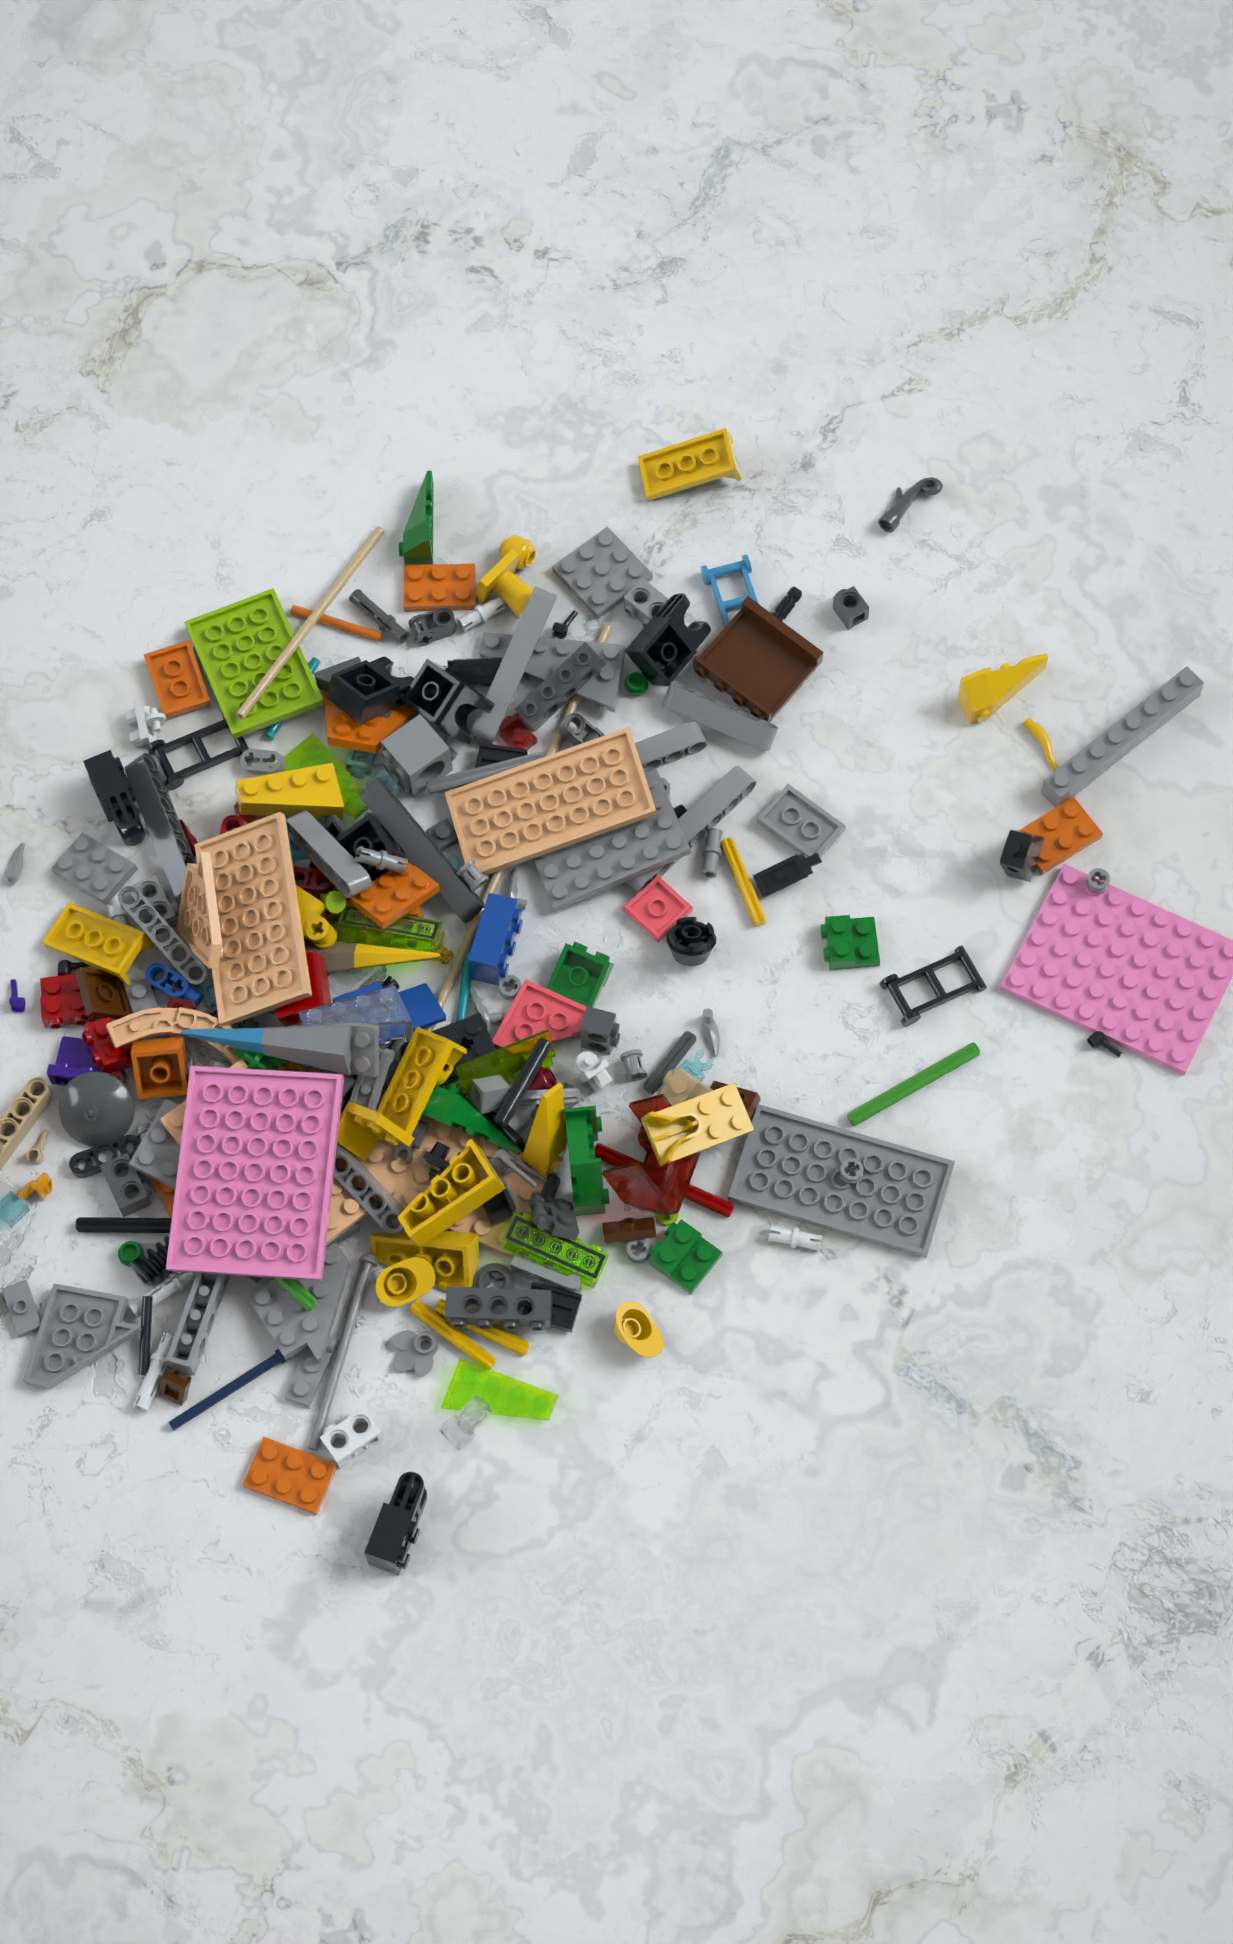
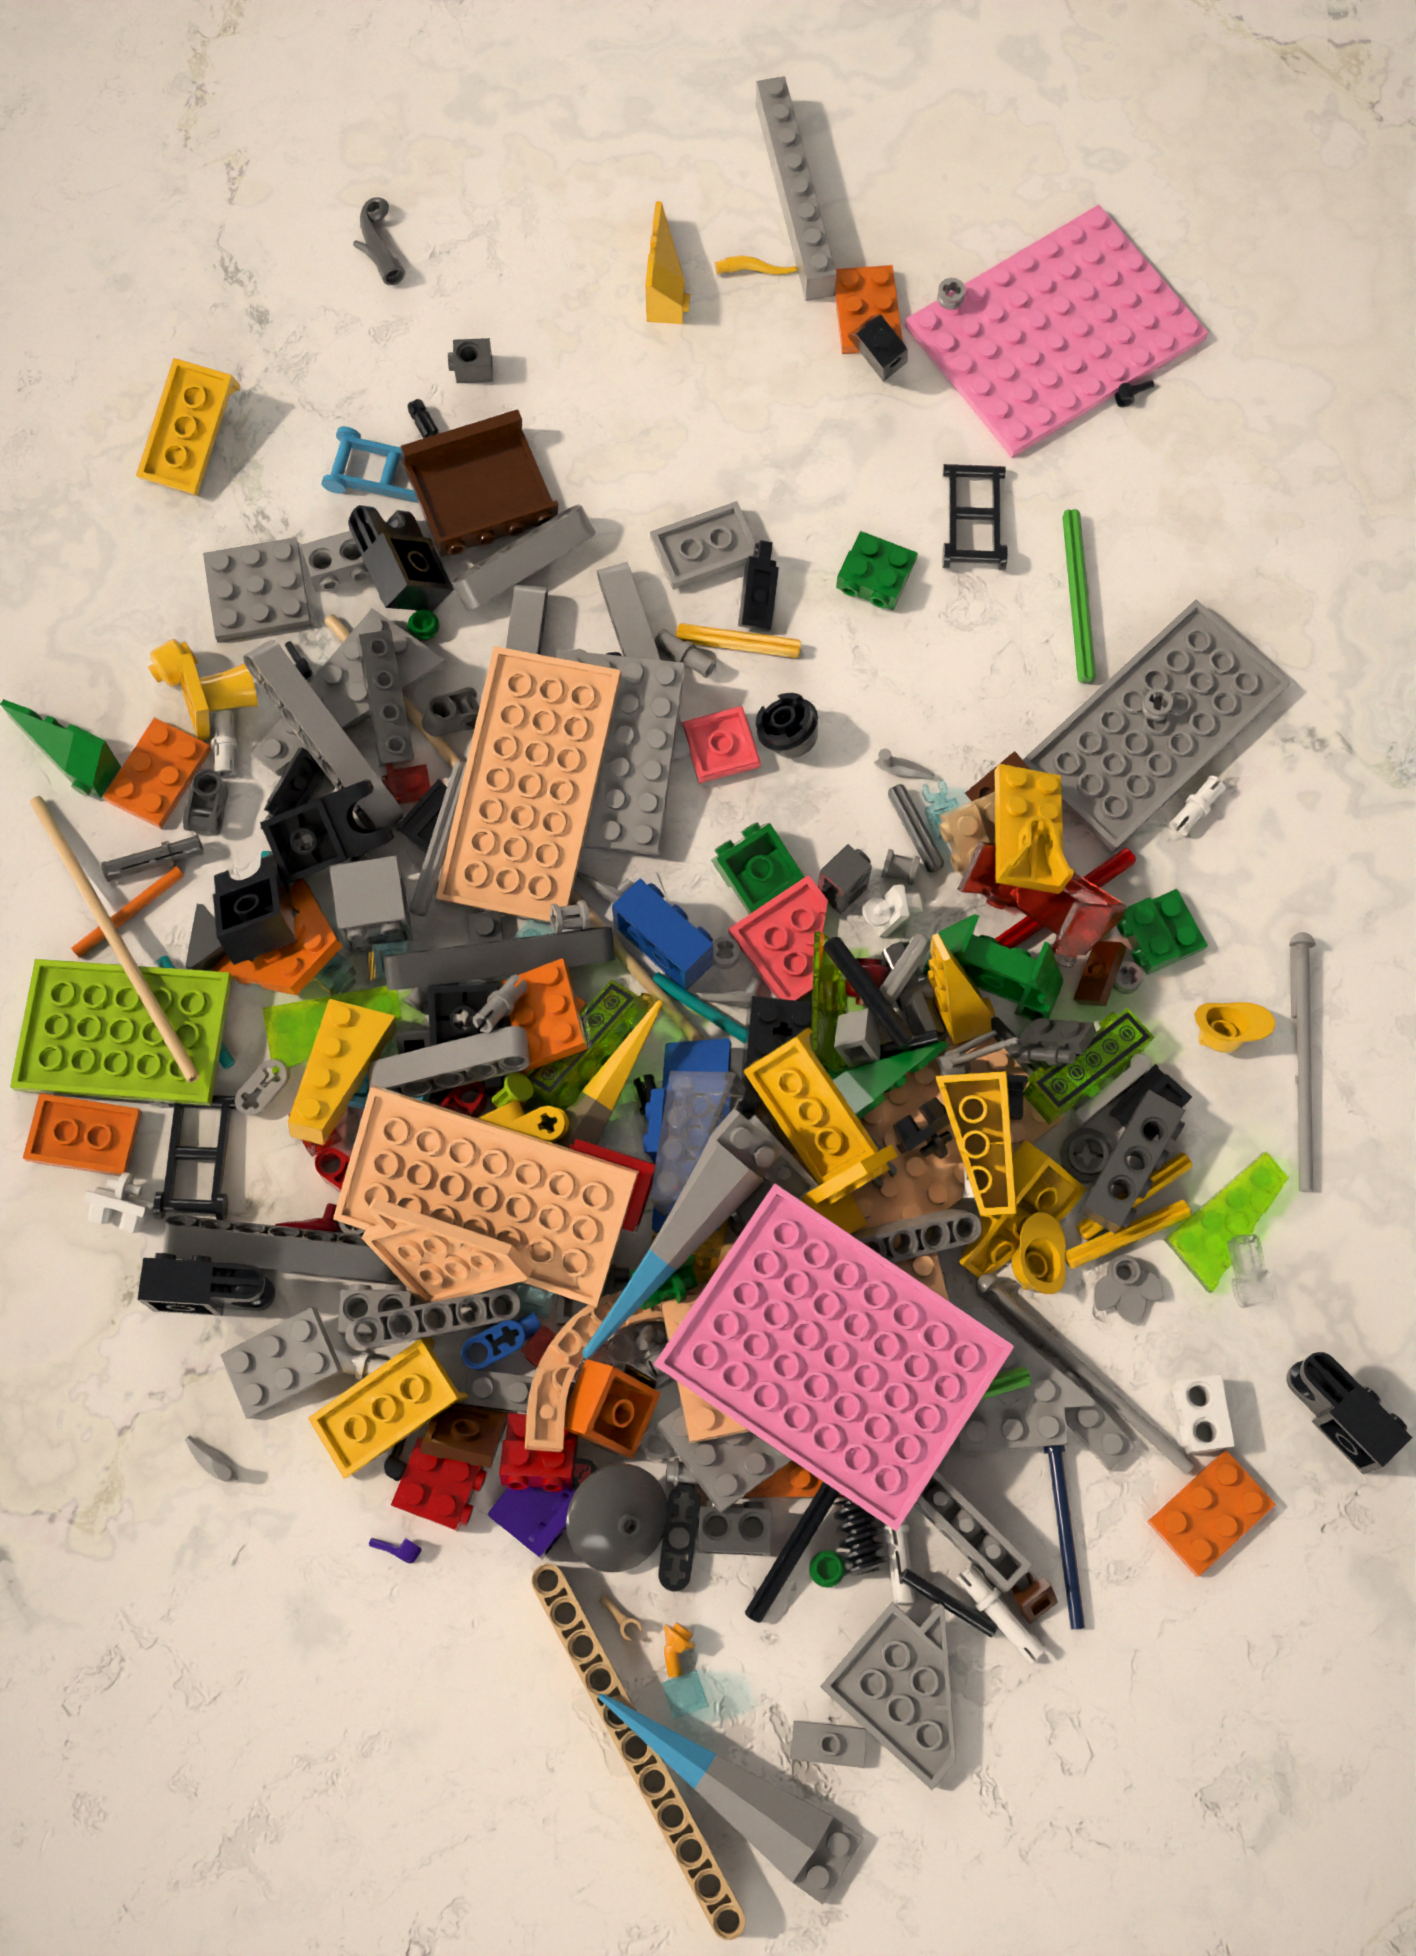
camera: 65 degrees left, 5 degrees up
(728, 1353) = (1300, 1009): none -> light grey bar

